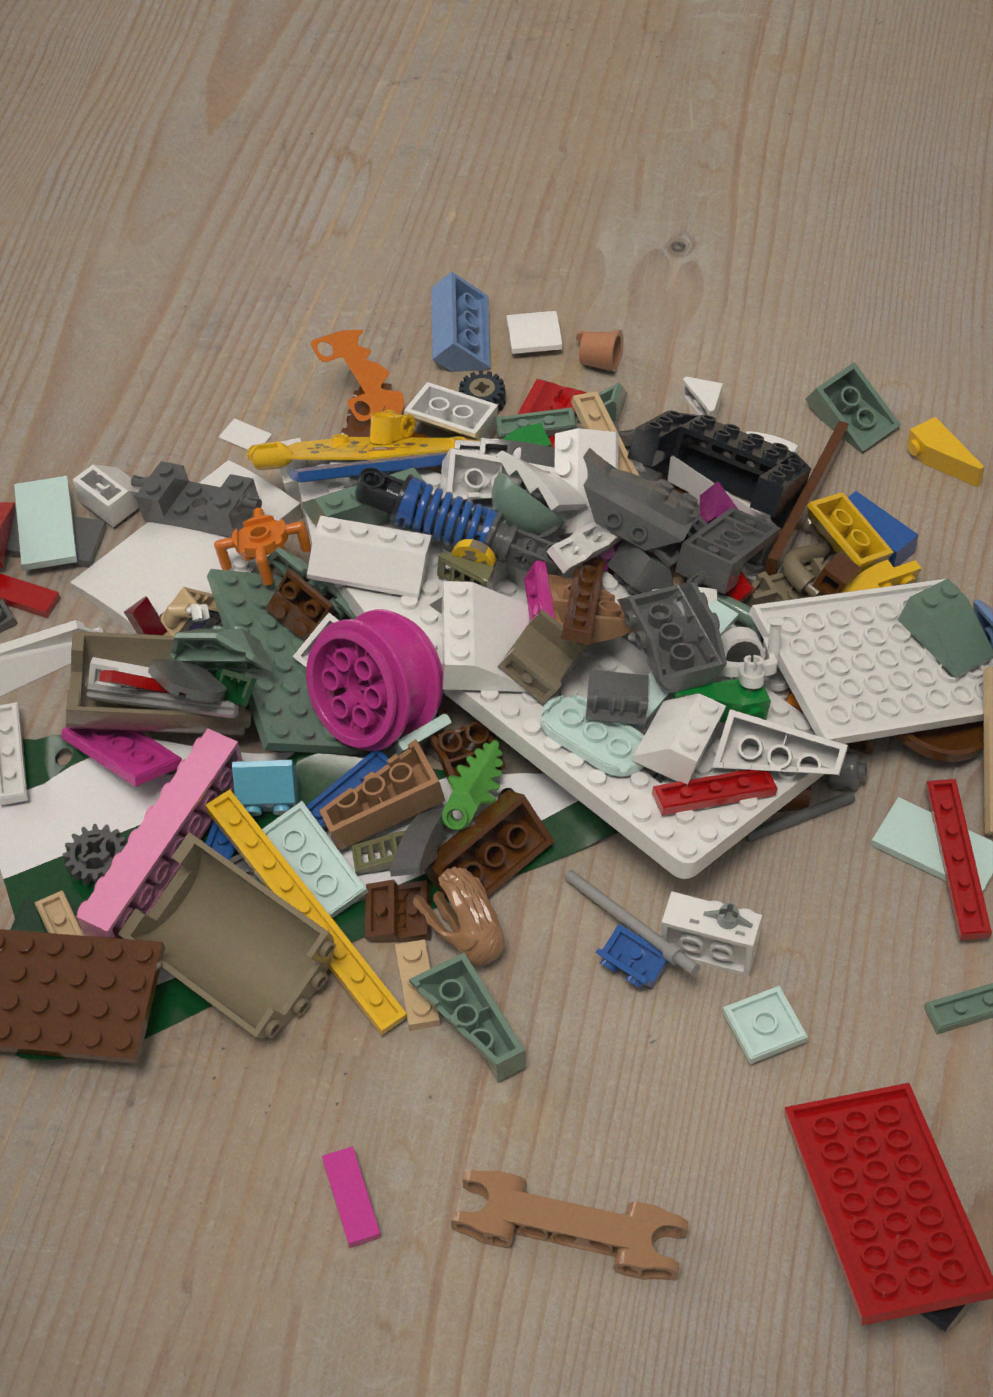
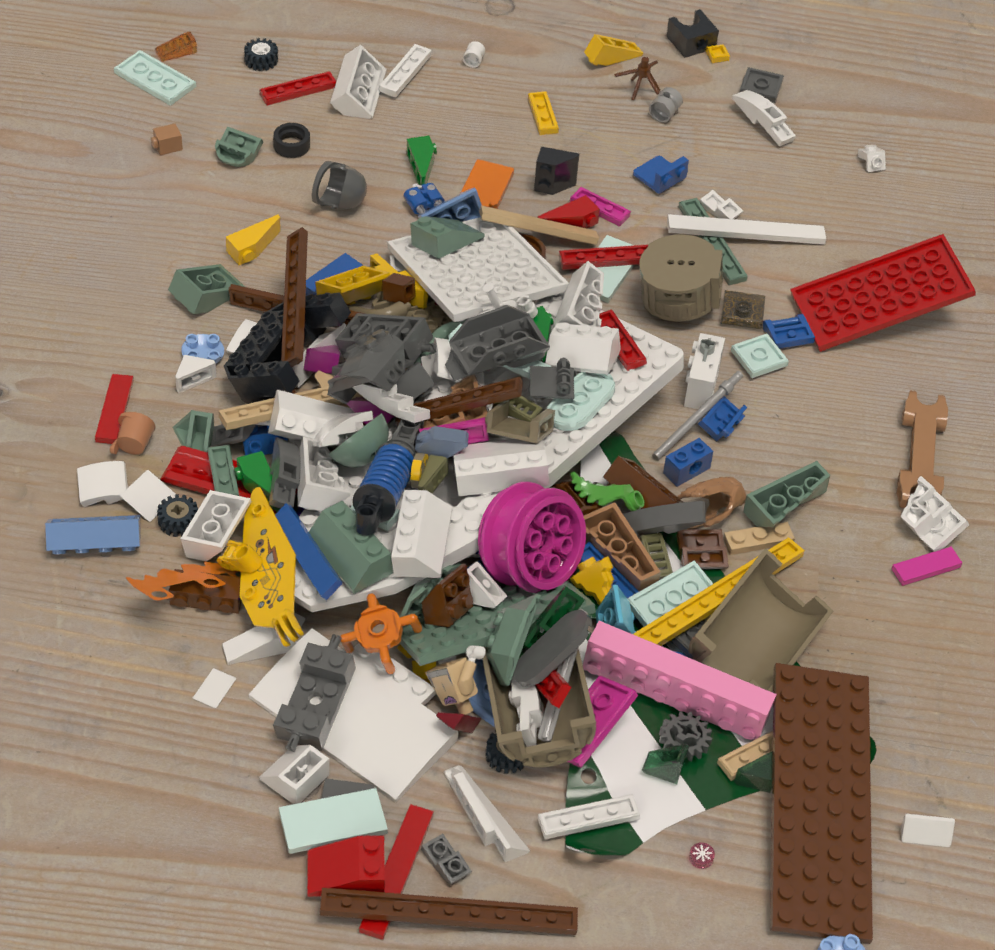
camera: 100 degrees left, 5 degrees down
(56, 831) = (666, 762): none -> clear green slope
(328, 769) = (594, 578): none -> yellow rock
(430, 1207) = (932, 517): none -> white slope
(512, 575) = (441, 441): none -> sand blue slope
(516, 369) = (147, 494): none -> white sticker
(547, 904) = (688, 462): none -> blue brick
(595, 649) = (527, 405): none -> olive slope
(658, 339) = (114, 405): none -> red tile
(747, 410) = (203, 346): none -> light blue dish
(797, 453) = (294, 297): none -> reddish brown plate
(809, 1072) = (789, 331): none -> blue plate
(862, 1014) = (743, 309): none -> clear smoke plate
(887, 908) = (681, 277): none -> dark tan piece

